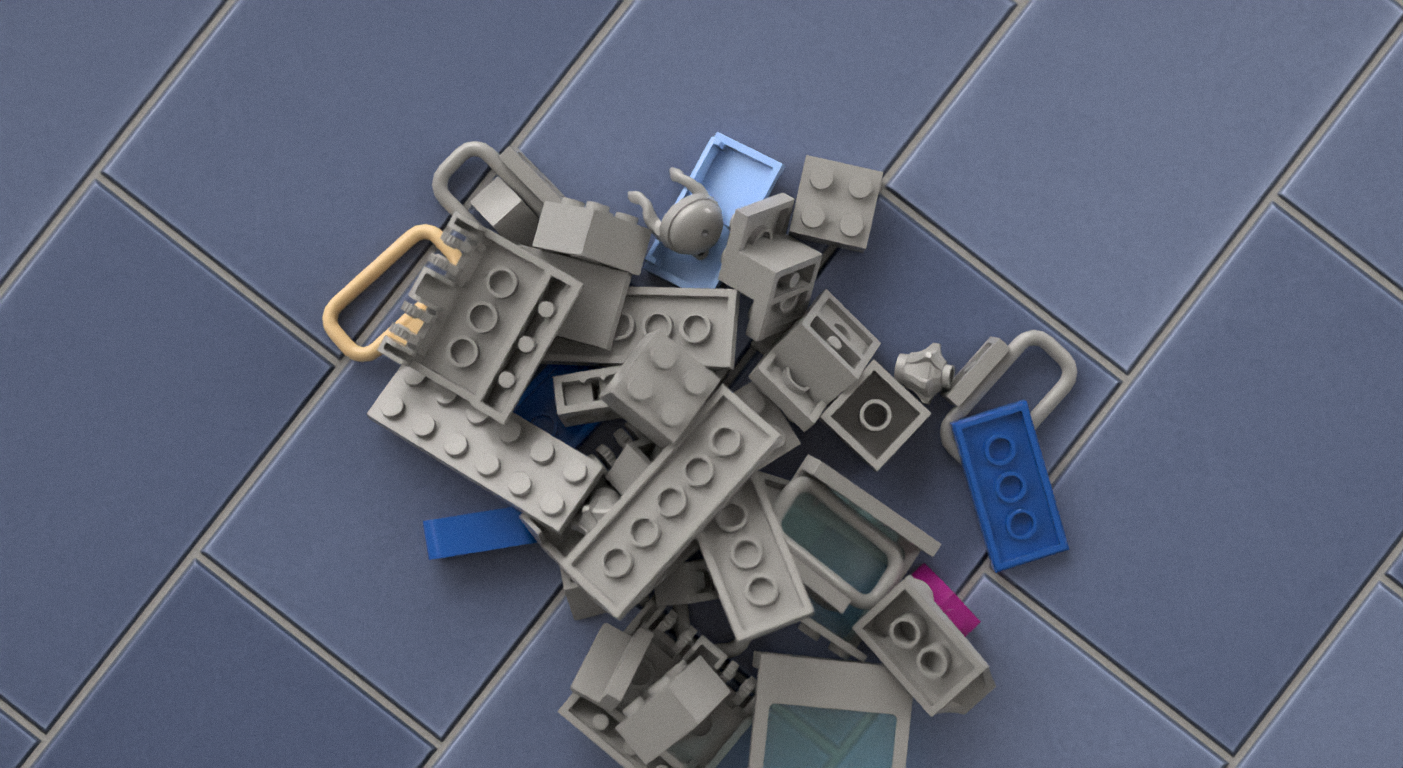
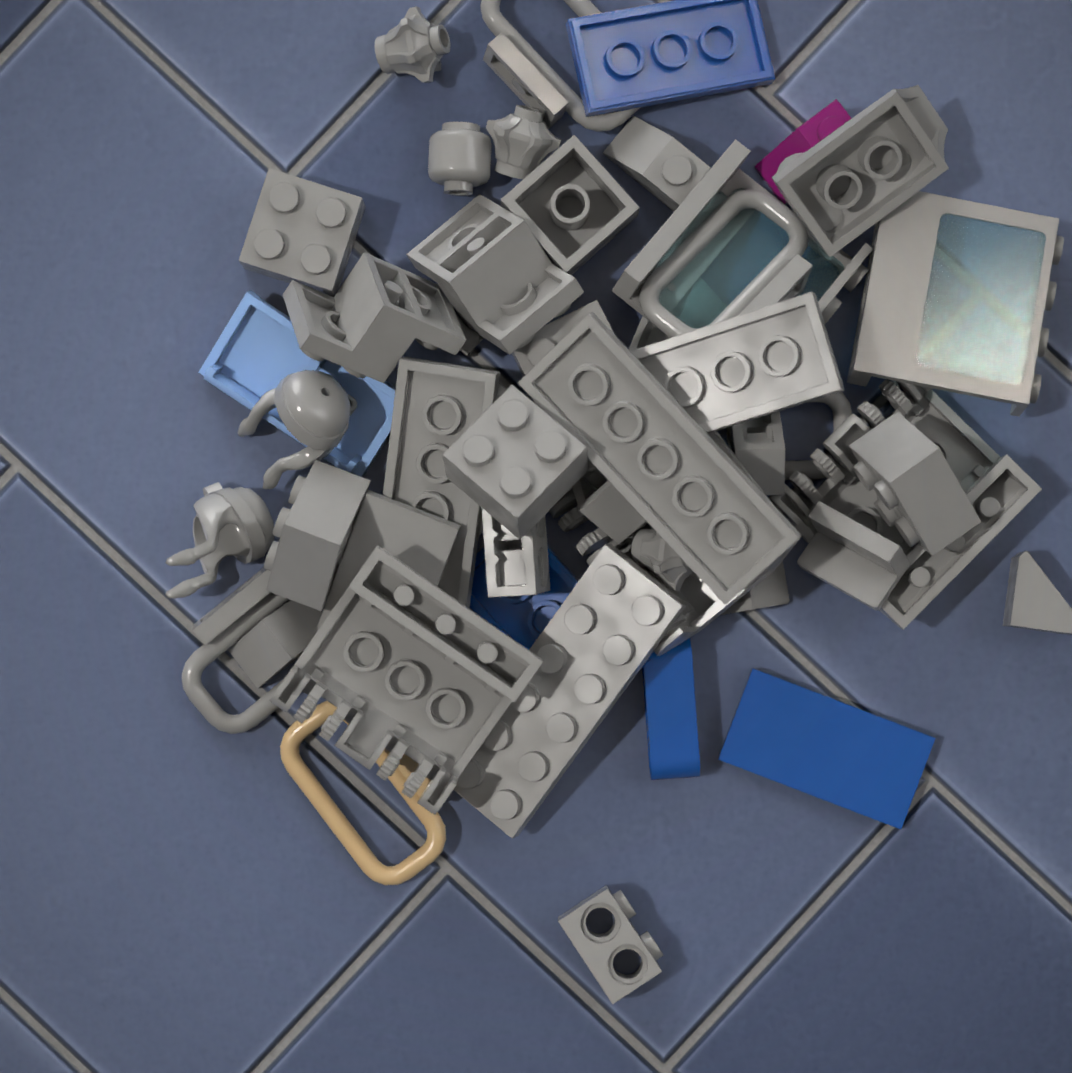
camera: 85 degrees left, 0 degrees up
(285, 492) = (600, 949): none -> light grey brick
(460, 659) = (826, 748): none -> blue tile
(596, 163) = (224, 525): none -> light grey hair
(907, 324) = (459, 158): none -> light grey head
(919, 482) = (656, 161): none -> light grey slope
(993, 278) = (413, 47): none -> light grey rock

